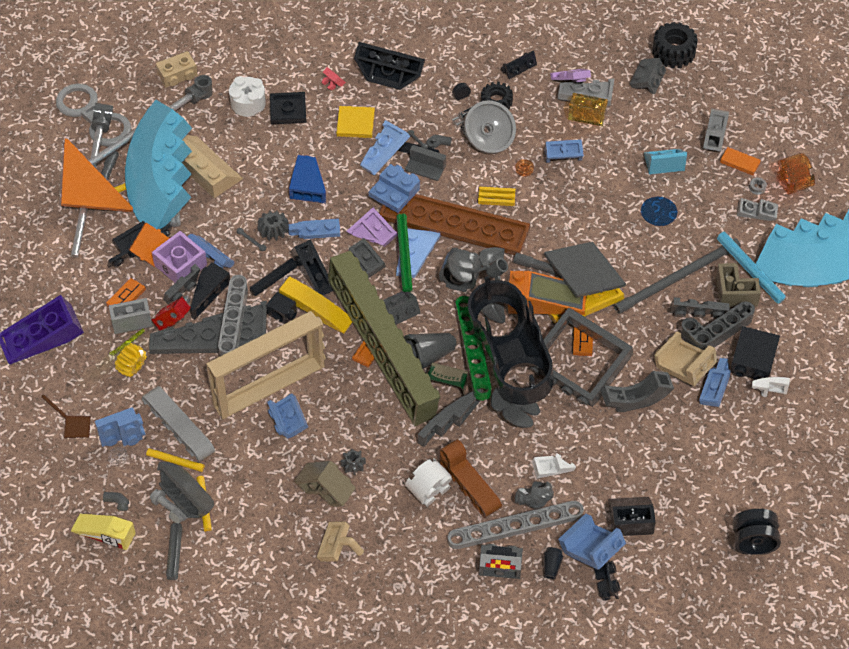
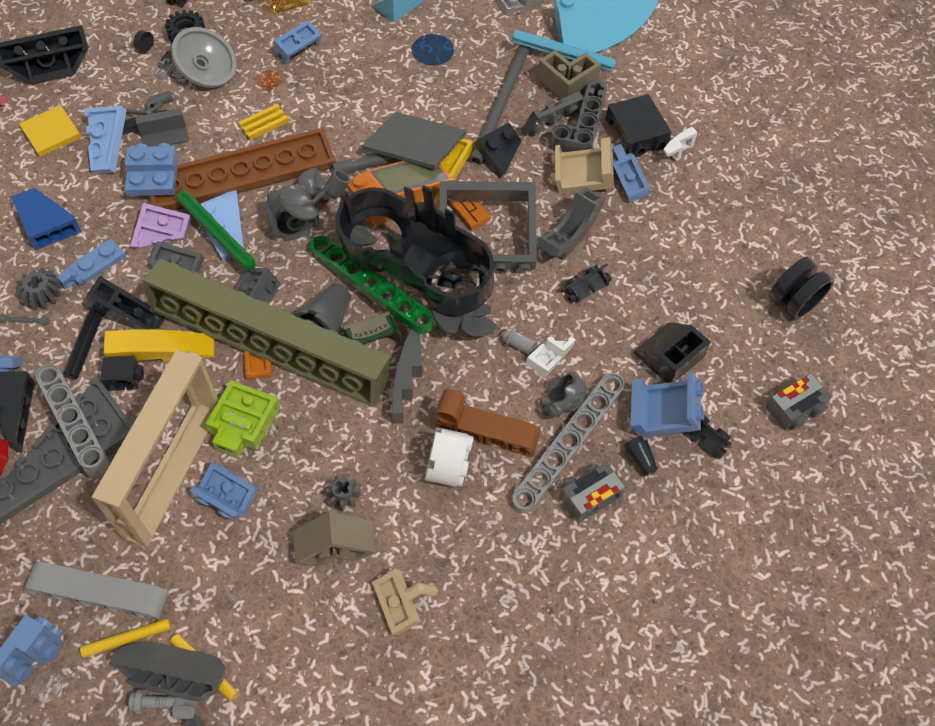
camera: 40 degrees left, 5 degrees up
(329, 380) = (241, 418): none -> lime piece
(516, 374) = (450, 280): none -> black plate
(538, 444) = (518, 341): none -> light grey pin
(624, 436) = (594, 277): none -> black hinge
(639, 310) = (499, 148): none -> black wing
(686, 601) = (798, 402): none -> brick

